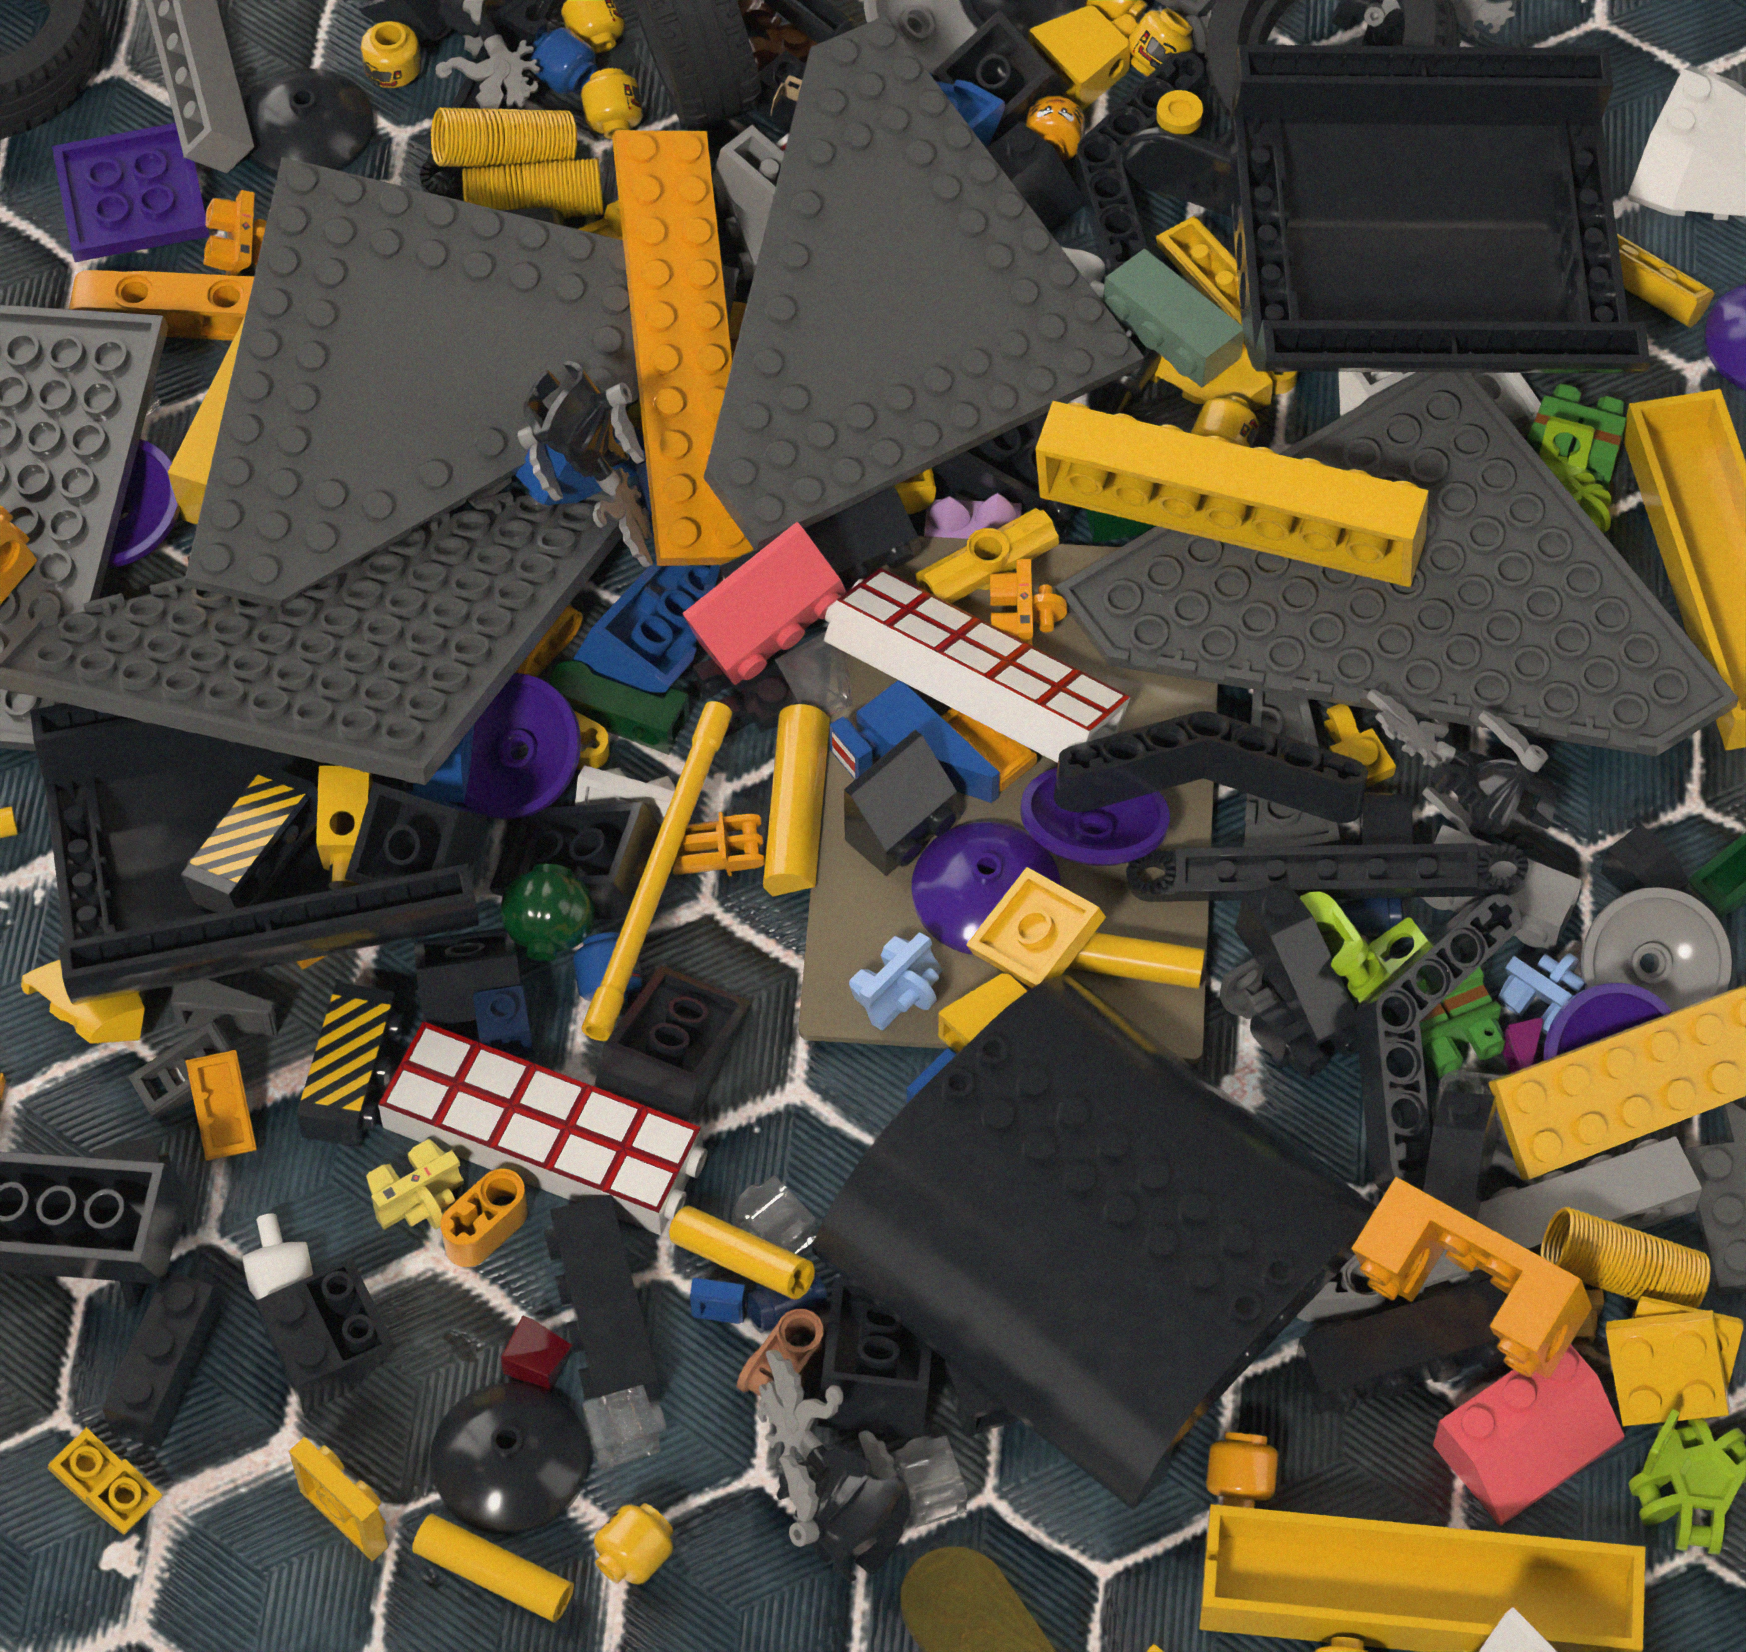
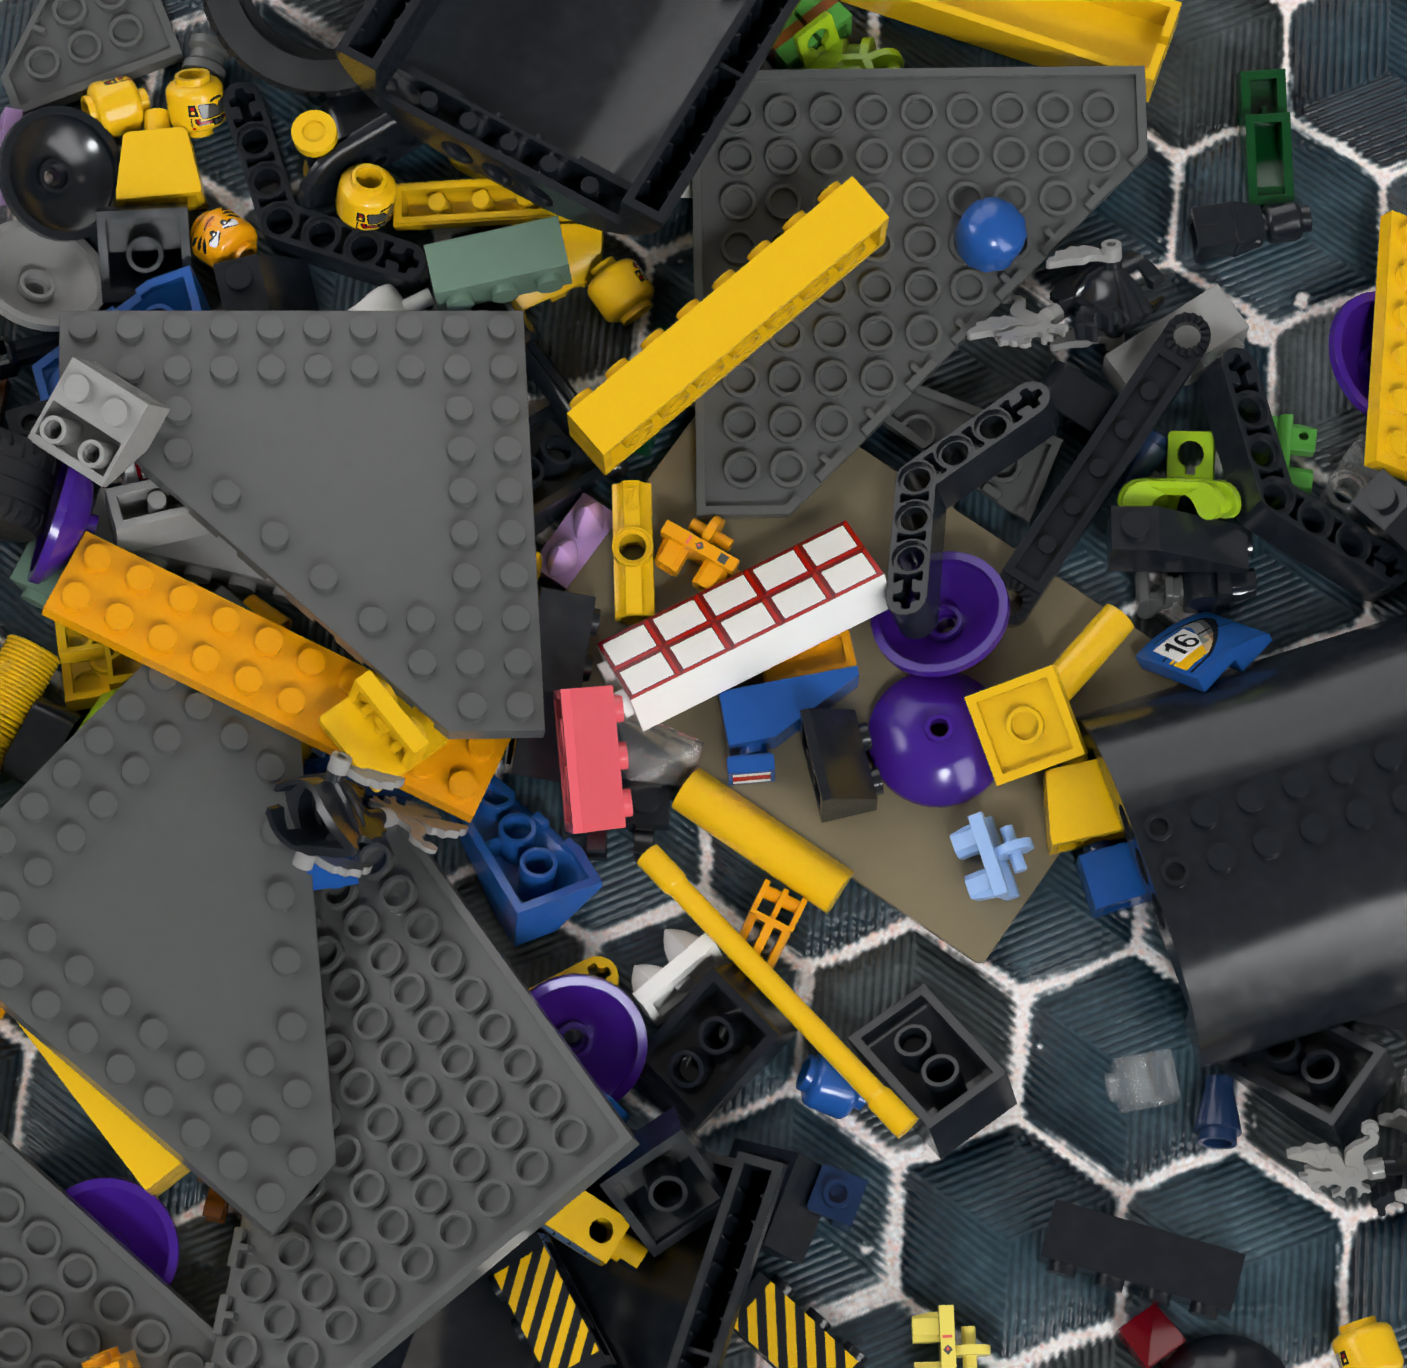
camera: 55 degrees left, 15 degrees up
(474, 1238) = (1020, 1319): light orange beam -> none
(543, 1127) = (949, 1218): white brick -> none
(547, 911) = (766, 1104): dark green plant -> none
(622, 709) = (579, 935): dark green leg -> none
(623, 1426) = (1259, 1303): clear brick -> none
(679, 433) = (380, 728): none -> yellow bracket
(717, 106) = (65, 524): none -> dark purple dish
(718, 1300) = (1189, 1166): blue tile -> none
(742, 1252) = (1165, 1123): yellow piece -> none
(799, 73) = (97, 421): none -> light grey slope
(804, 1359) = (1270, 1148): nougat piece -> none
(1162, 193) = (365, 196): none -> yellow head
(1207, 1038) = (1202, 649): none -> blue slope
(1360, 746) = (985, 377): yellow plate -> none
(1480, 660) = (990, 234): none -> blue hair
(1522, 1045) = (1332, 421): magenta slope -> none
(1526, 984) = (1311, 368): light blue hips -> none
(1672, 927) = (1329, 257): light grey dish -> none

